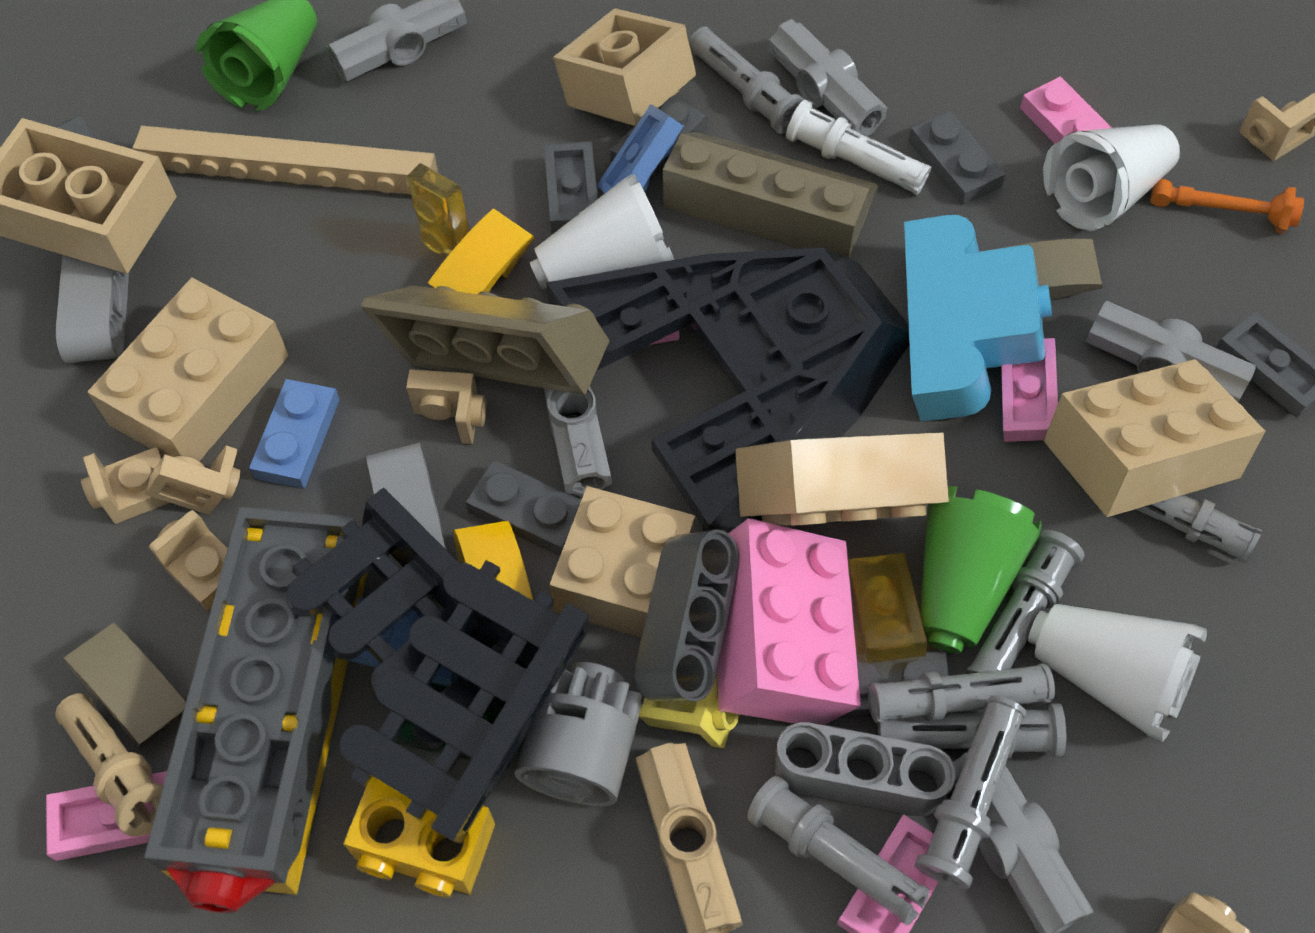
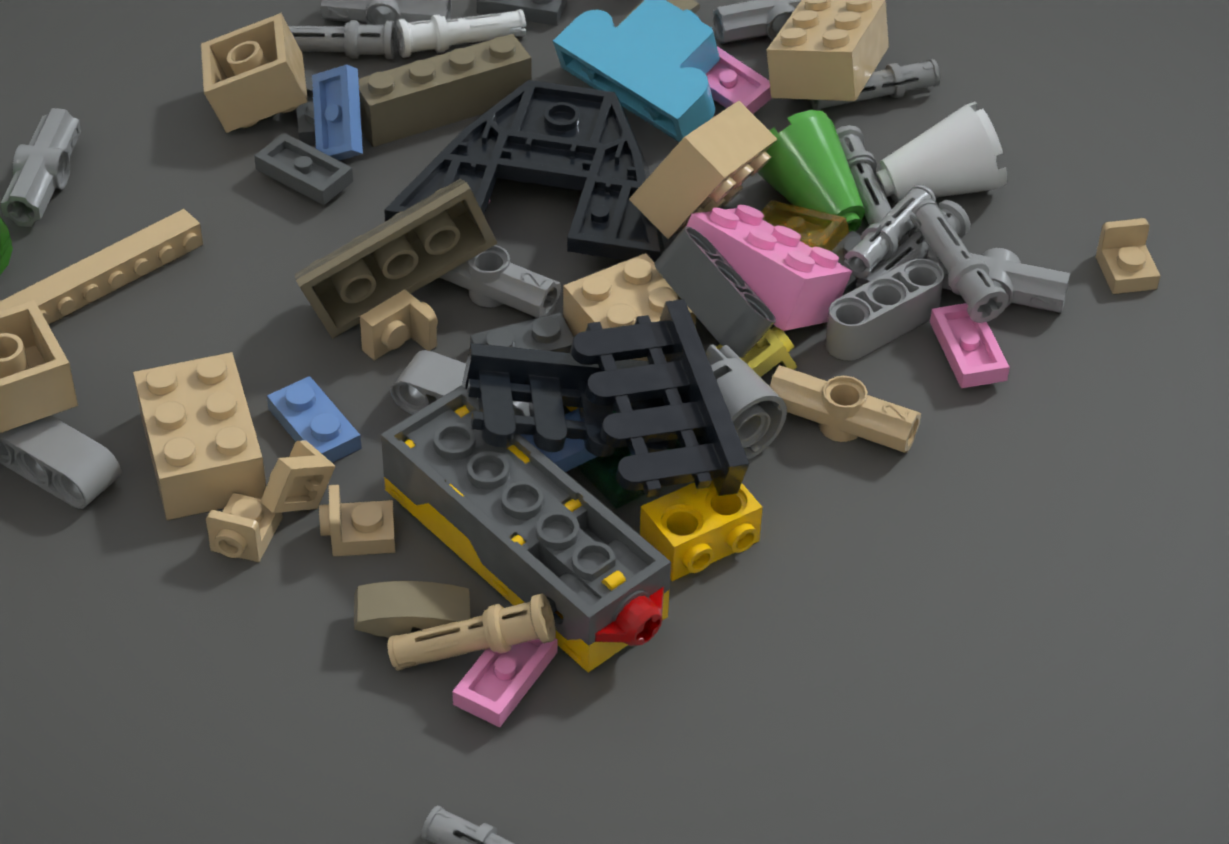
camera: 50 degrees left, 15 degrees down
(438, 209) = (251, 227): clear yellow plate -> none
(483, 255) = (301, 238): yellow slope -> none
(605, 237) = (382, 162): white cone -> none
(812, 833) = (902, 349): light grey pin -> none

